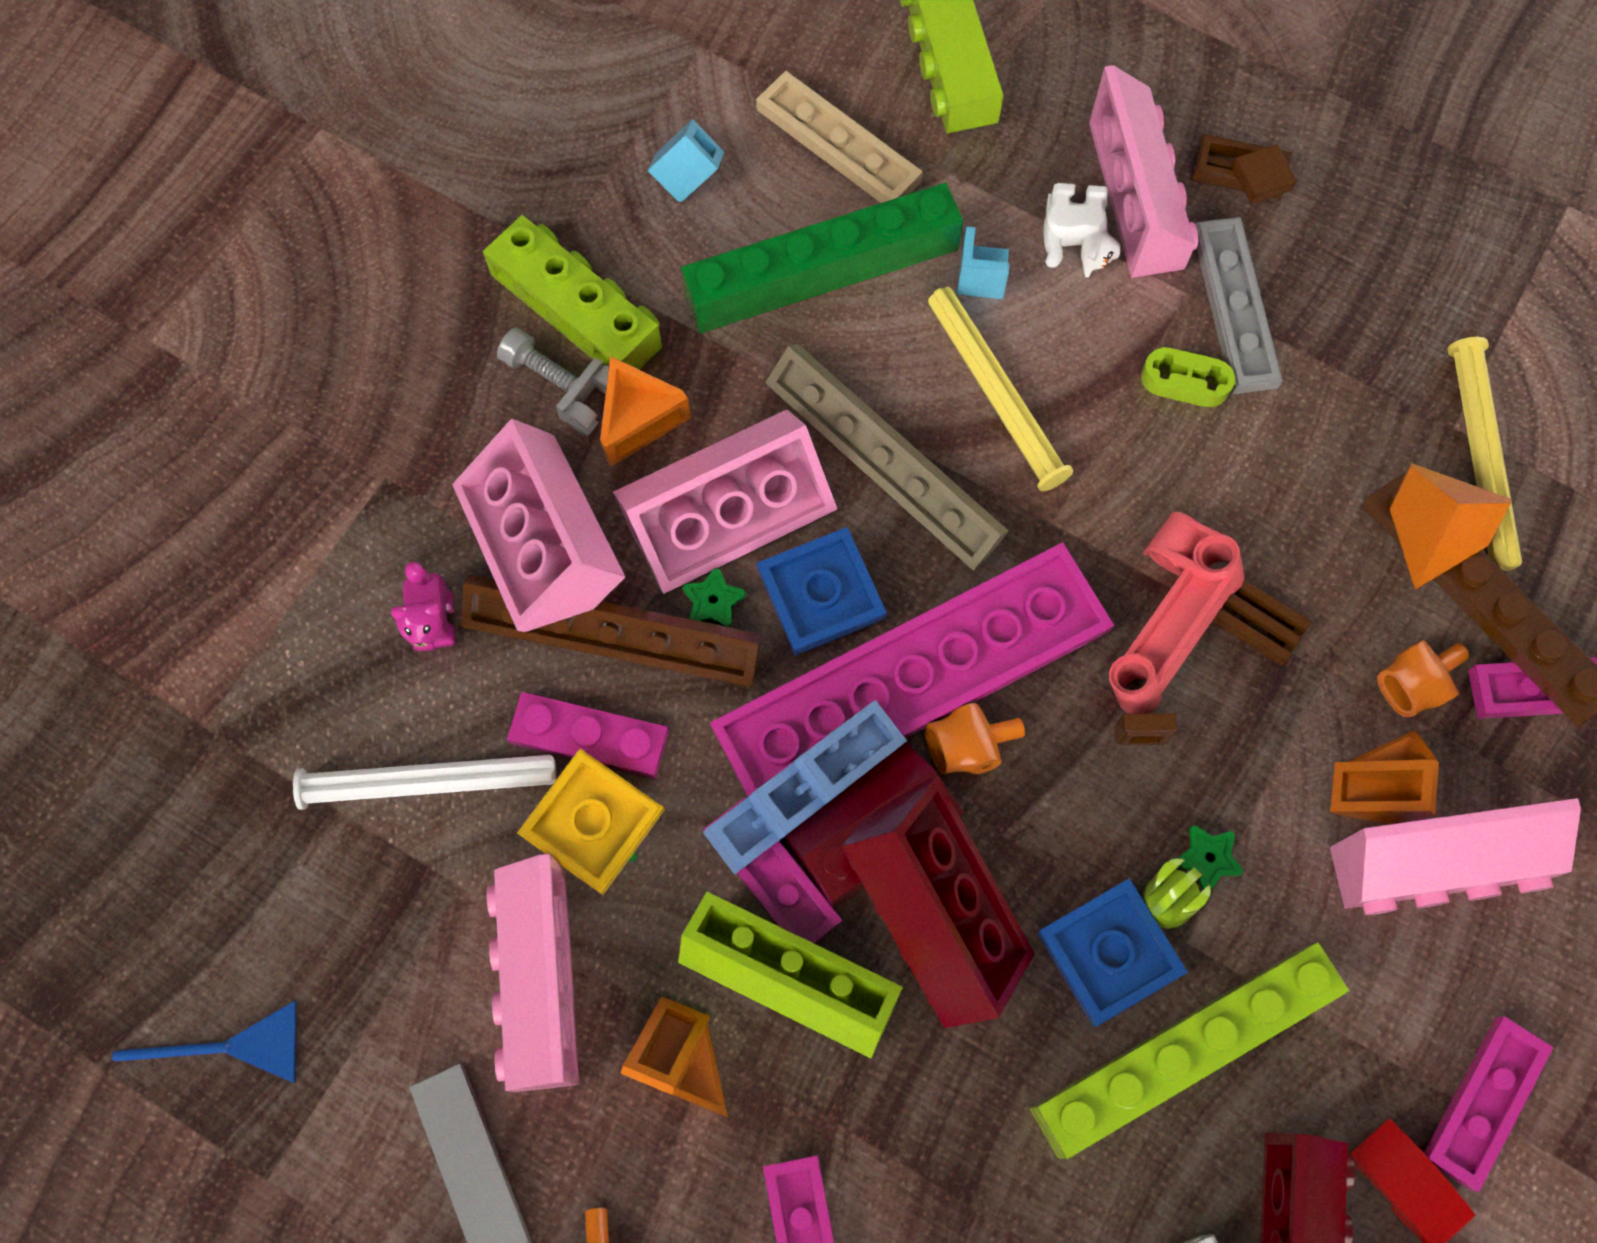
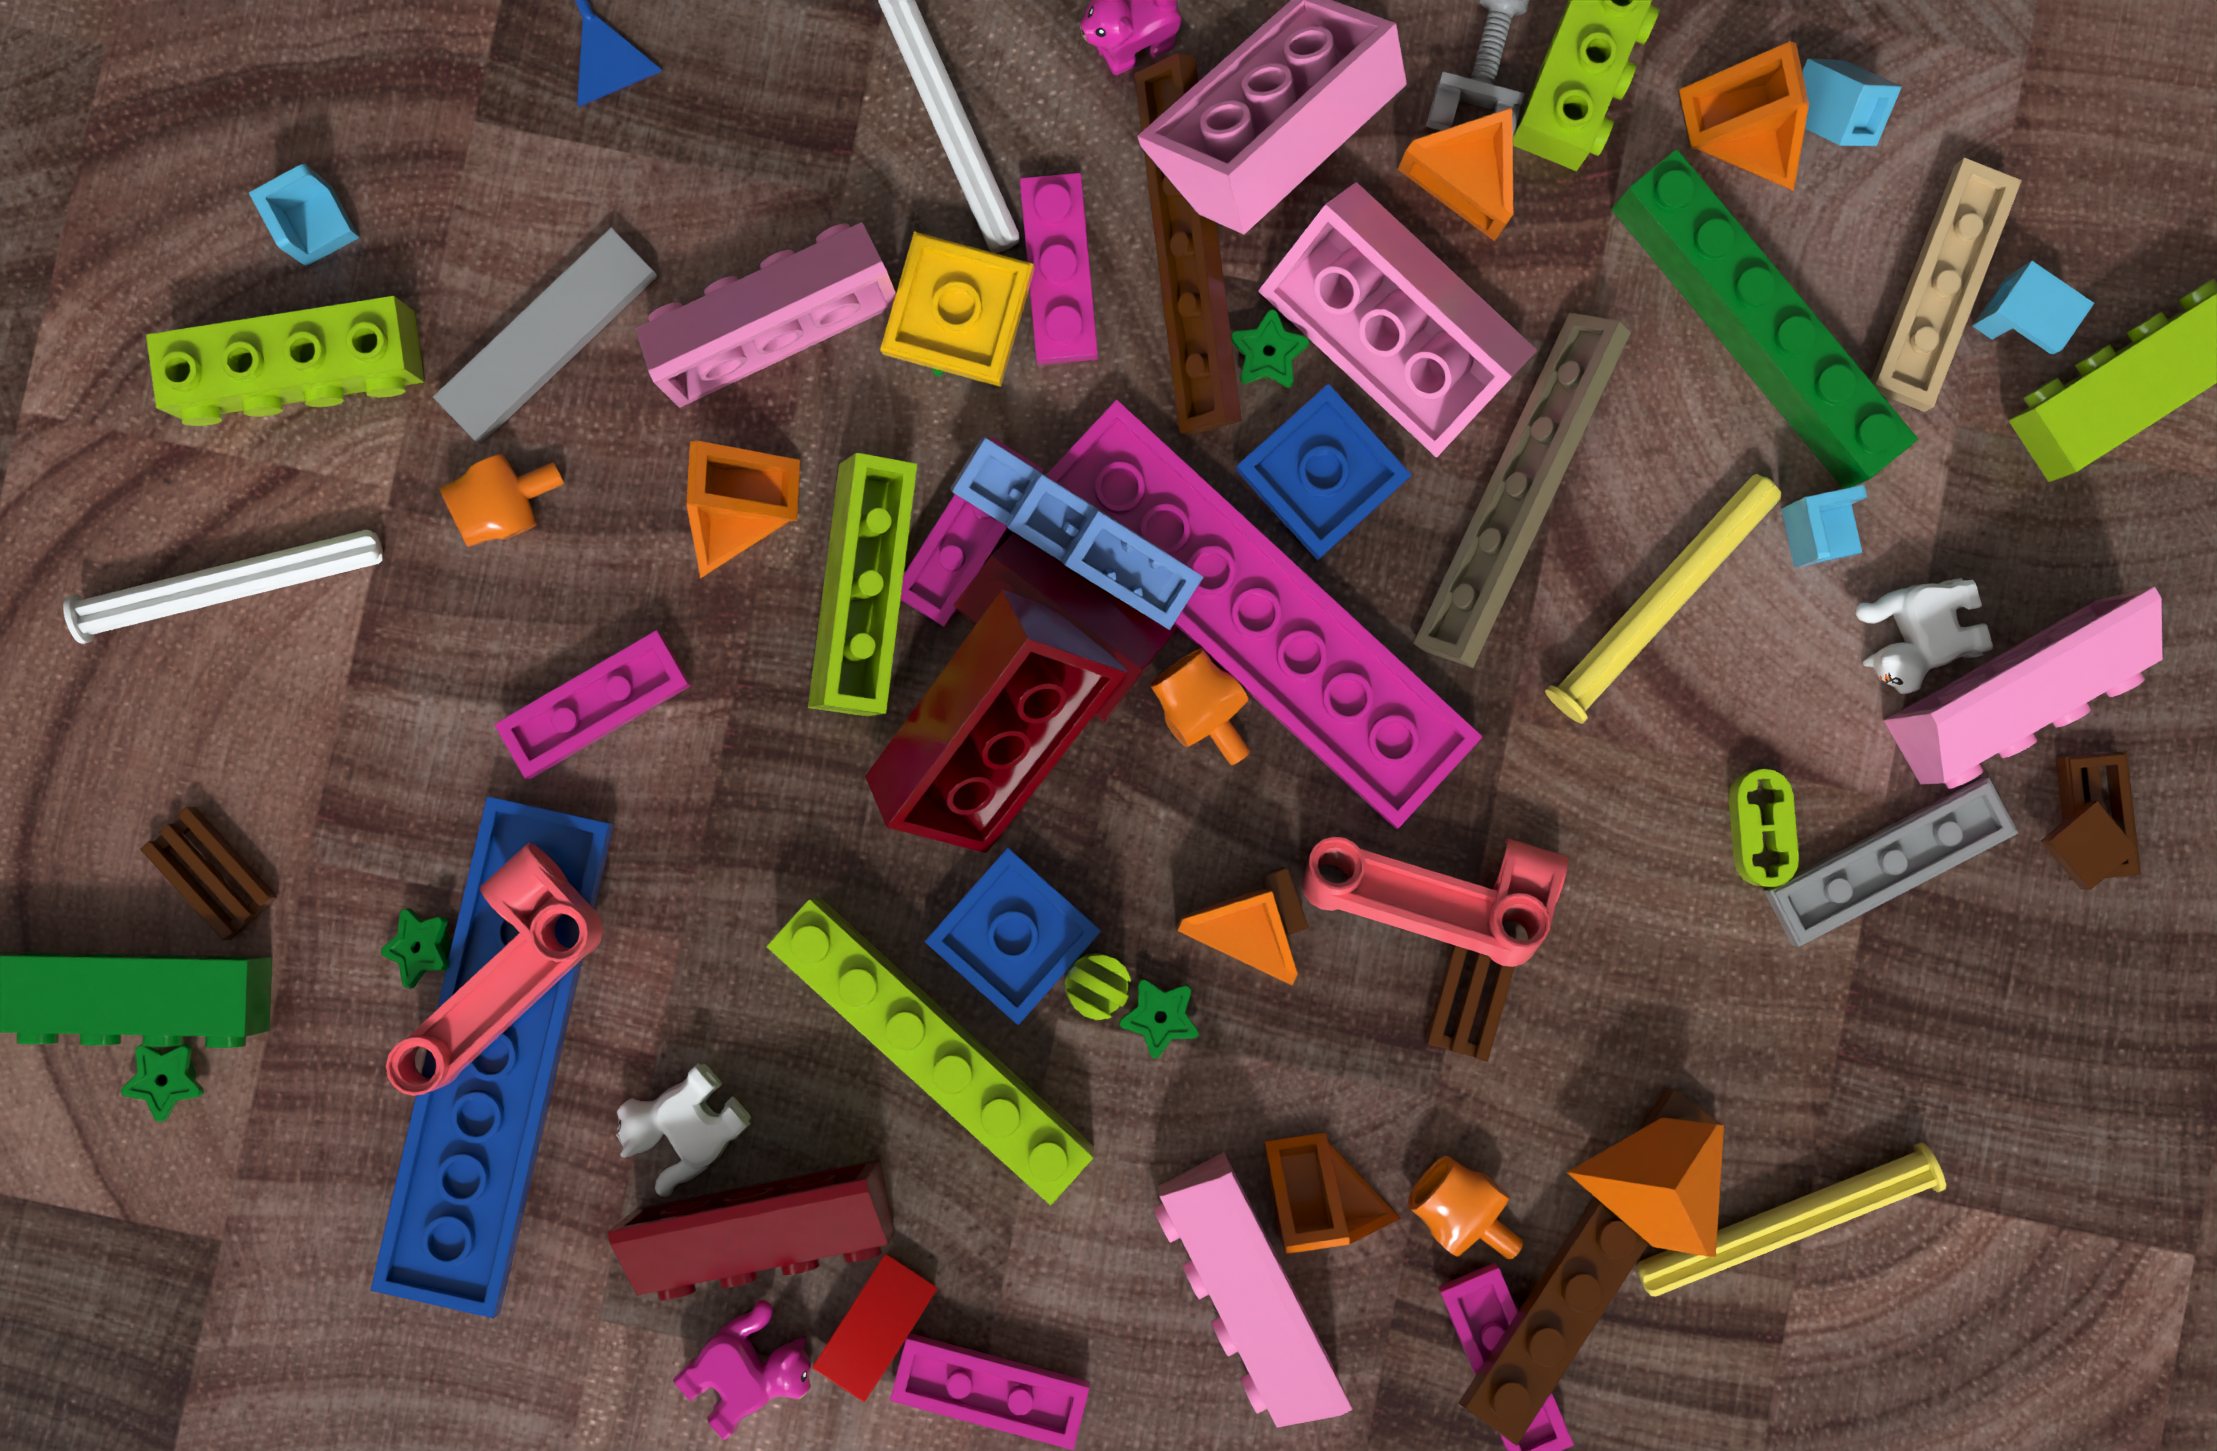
camera: 70 degrees right, 15 degrees up
(672, 217) = (1752, 114): none -> orange slope
(874, 88) = (2036, 307): none -> medium azure panel
(1158, 761) = (1245, 930): none -> orange slope

